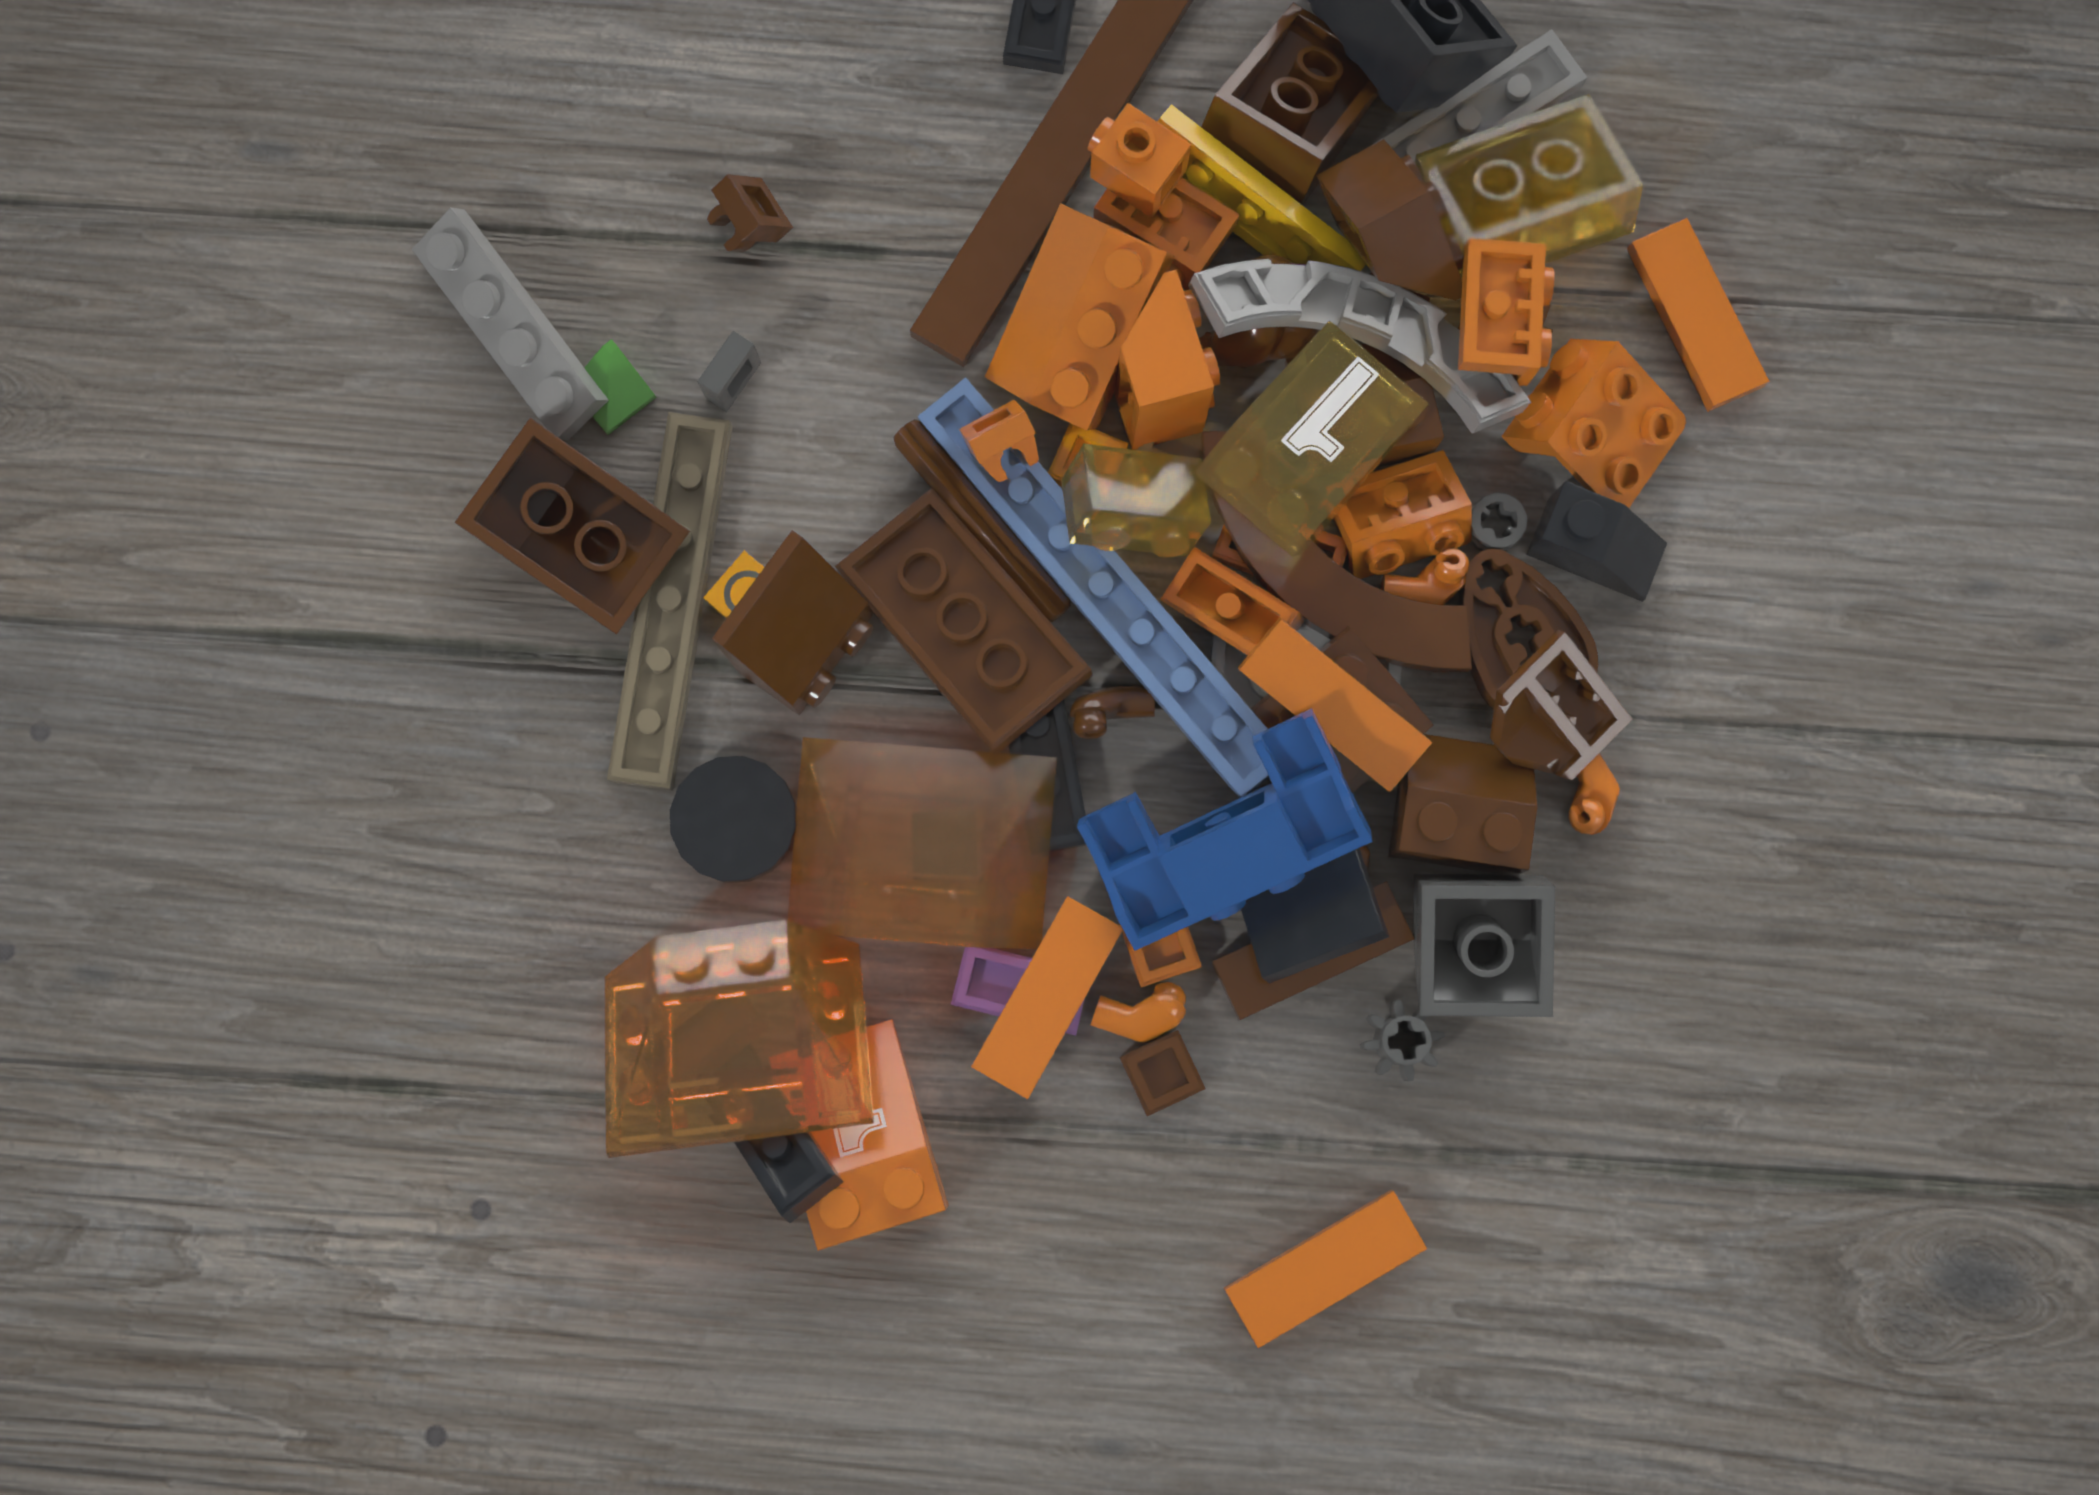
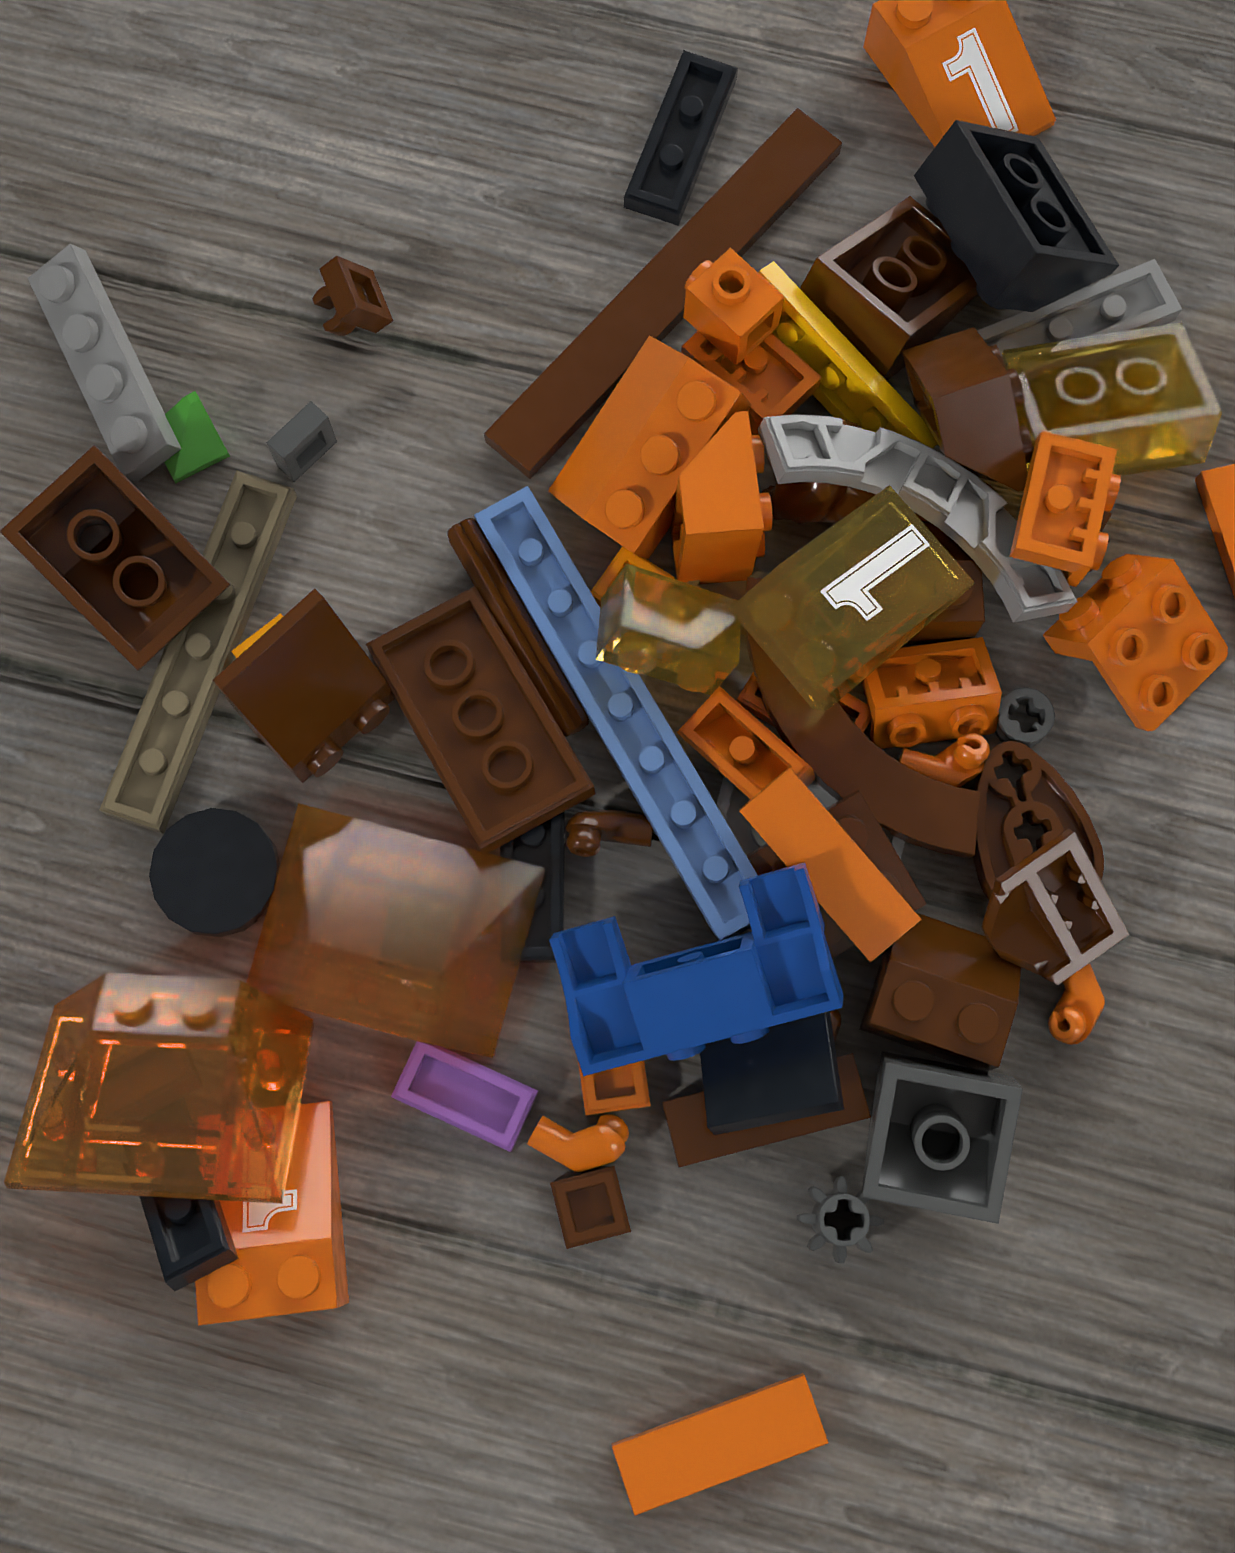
camera: 10 degrees right, 5 degrees down
(998, 431) = (545, 539): orange tile -> none
(1047, 997) = (487, 1108): orange tile -> none
(1598, 541) = (1122, 752): black slope -> none

